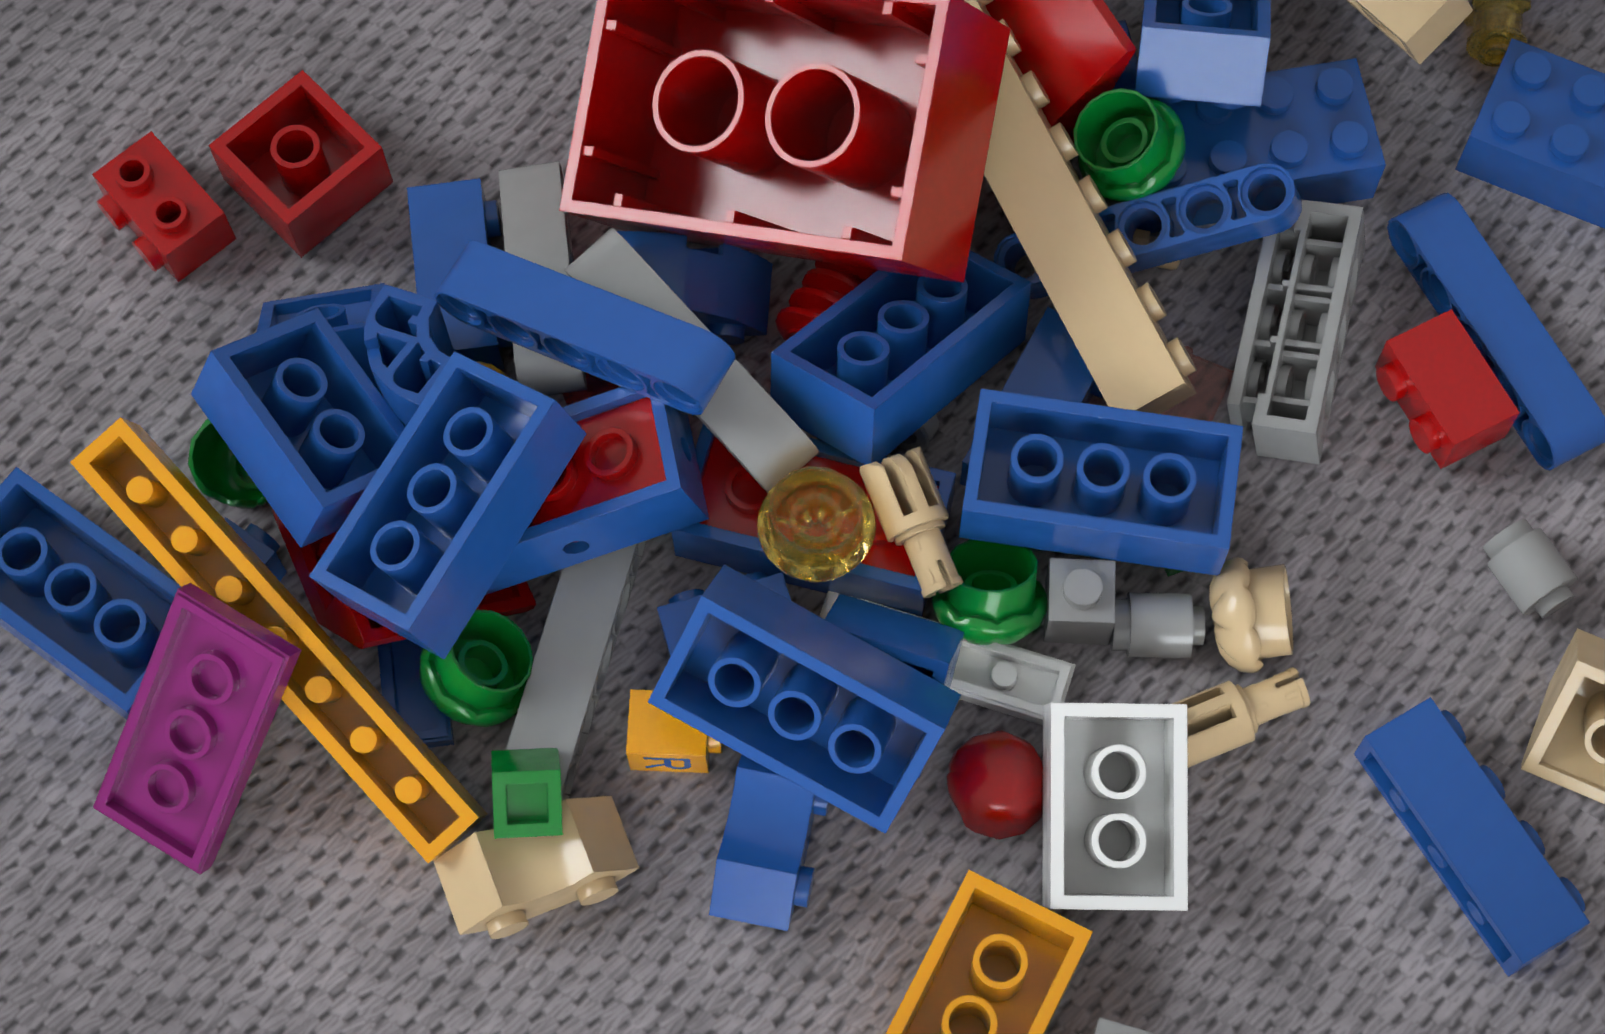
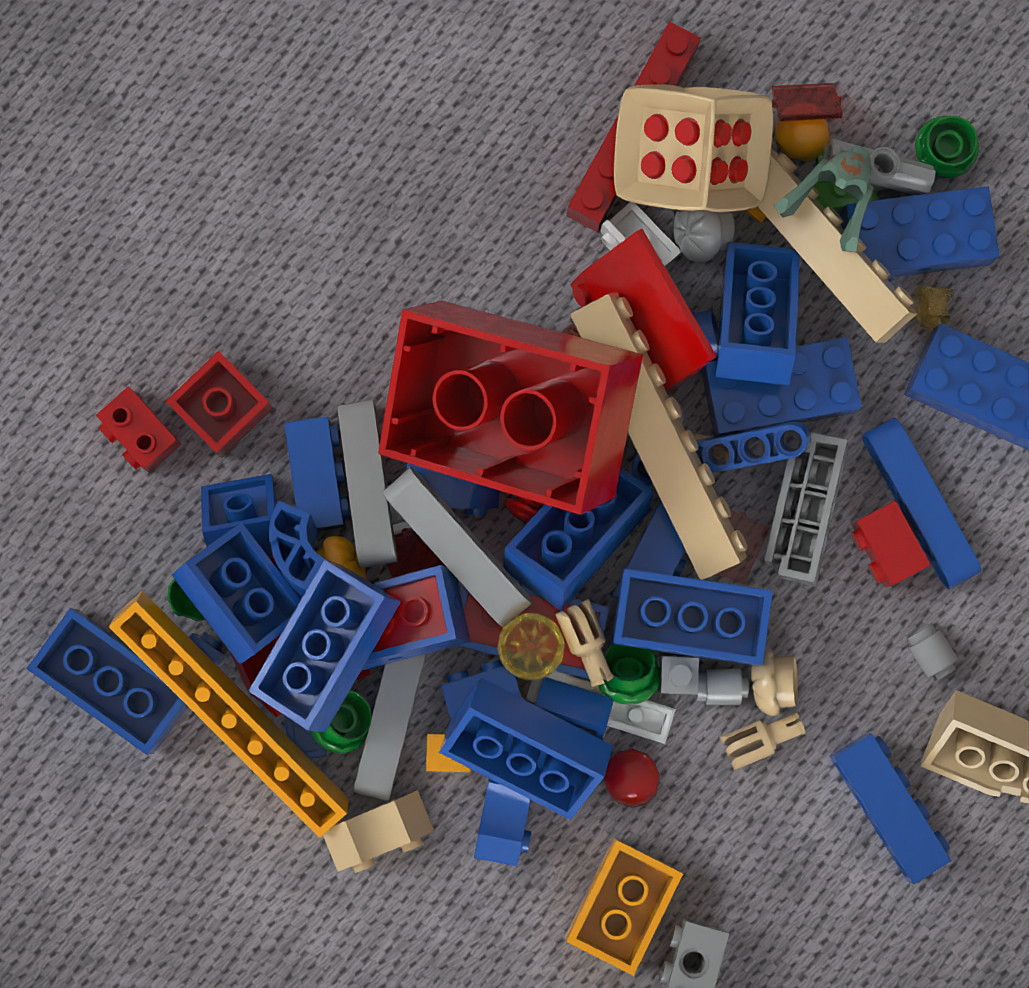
camera: 10 degrees left, 15 degrees up
(196, 727) = (186, 763): magenta tile -> none
(526, 793) = (372, 798): green panel -> none
(586, 327) = (397, 538): blue beam -> none
(1115, 806) = (696, 800): white brick -> none
(1129, 144) = (712, 406): green piece -> none

